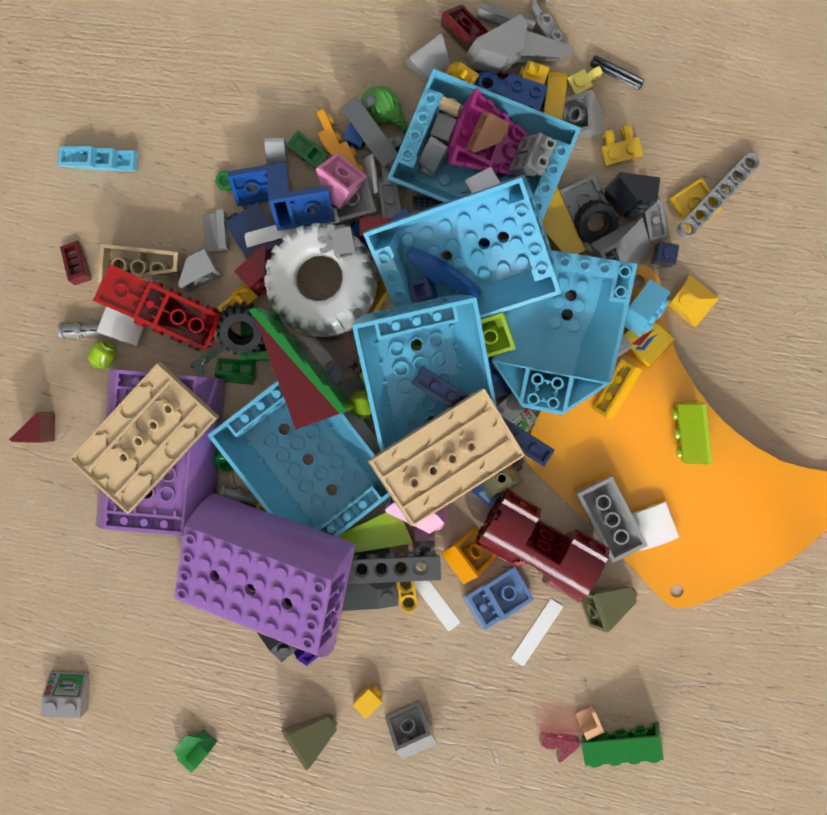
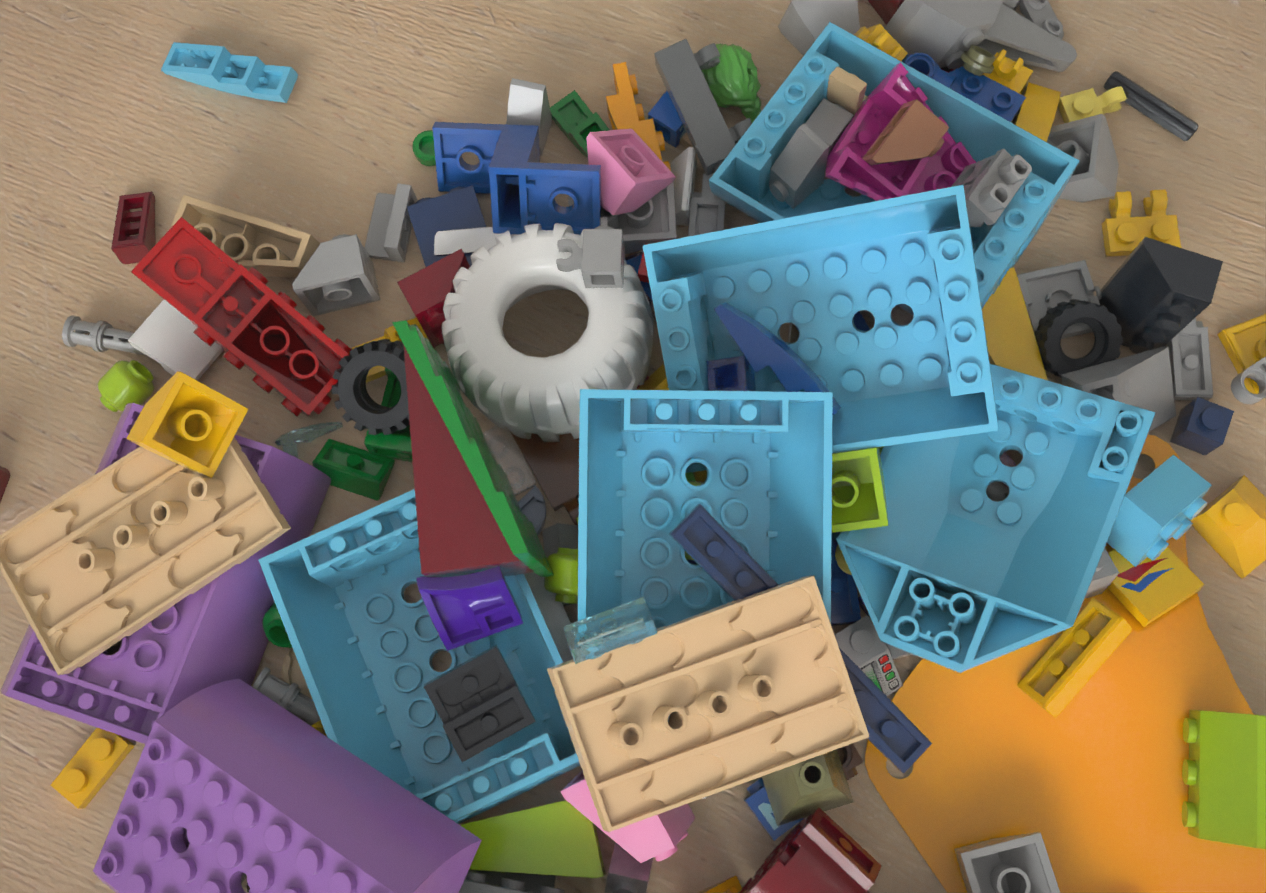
camera: 20 degrees right, 15 degrees down
(149, 549) = (92, 767): none -> yellow plate
(153, 378) = (188, 424): none -> yellow slope
(320, 437) = (469, 606): none -> dark purple plate
(336, 479) = (479, 703): none -> black slope
(393, 437) = (609, 630): none -> clear light blue plate
(518, 71) = (978, 60): none -> olive plate

